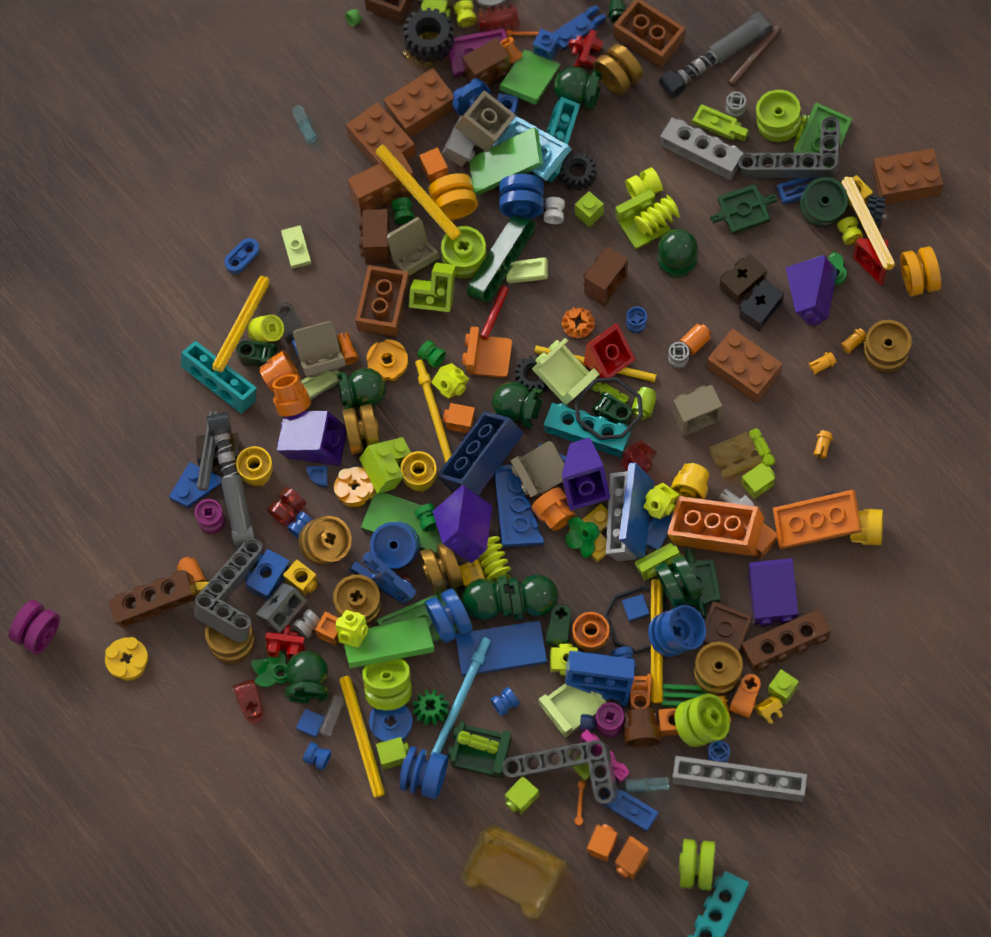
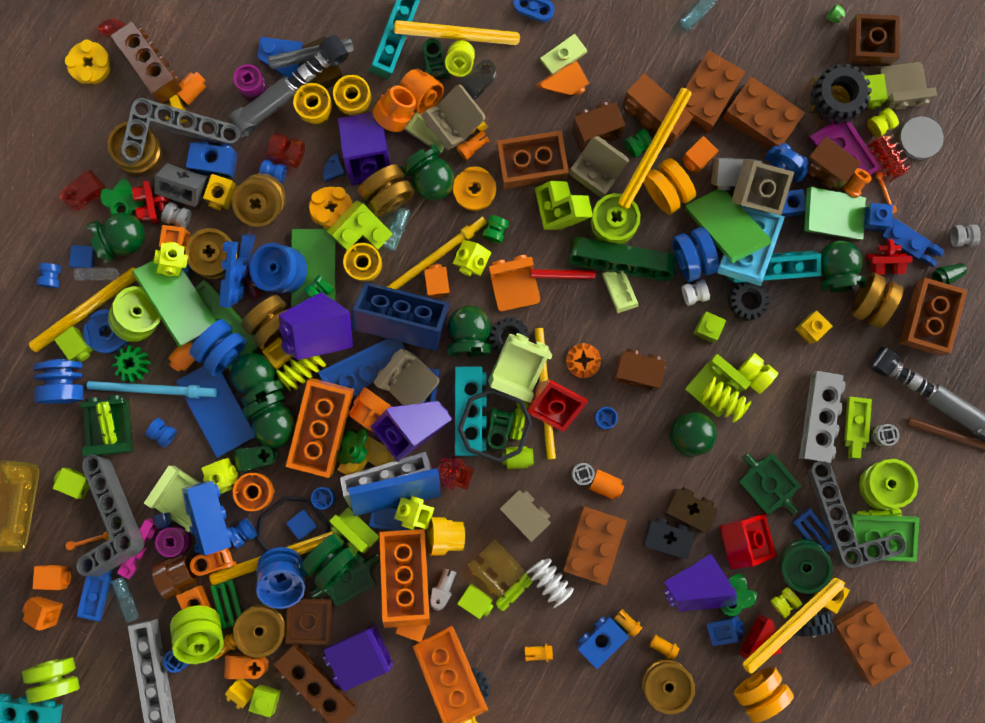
camera: 65 degrees right, 15 degrees up
(101, 624) = (110, 26): none -> clear red arm
(257, 421) = (348, 85): none -> yellow piece
(321, 250) = (565, 81): none -> orange slope
(393, 433) = (397, 228): none -> clear light blue axle
(441, 659) = (180, 357): none -> orange brick
(554, 555) = (320, 427): none -> orange brick
(618, 574) = (320, 496): none -> blue wheel
(621, 127) = (813, 327): none -> yellow brick
(763, 411) = (550, 581): none -> white piece
(786, 243) = (748, 541): none -> red slope
(830, 376) = (599, 654): none -> blue brick
(857, 286) = (726, 631): none -> blue bracket

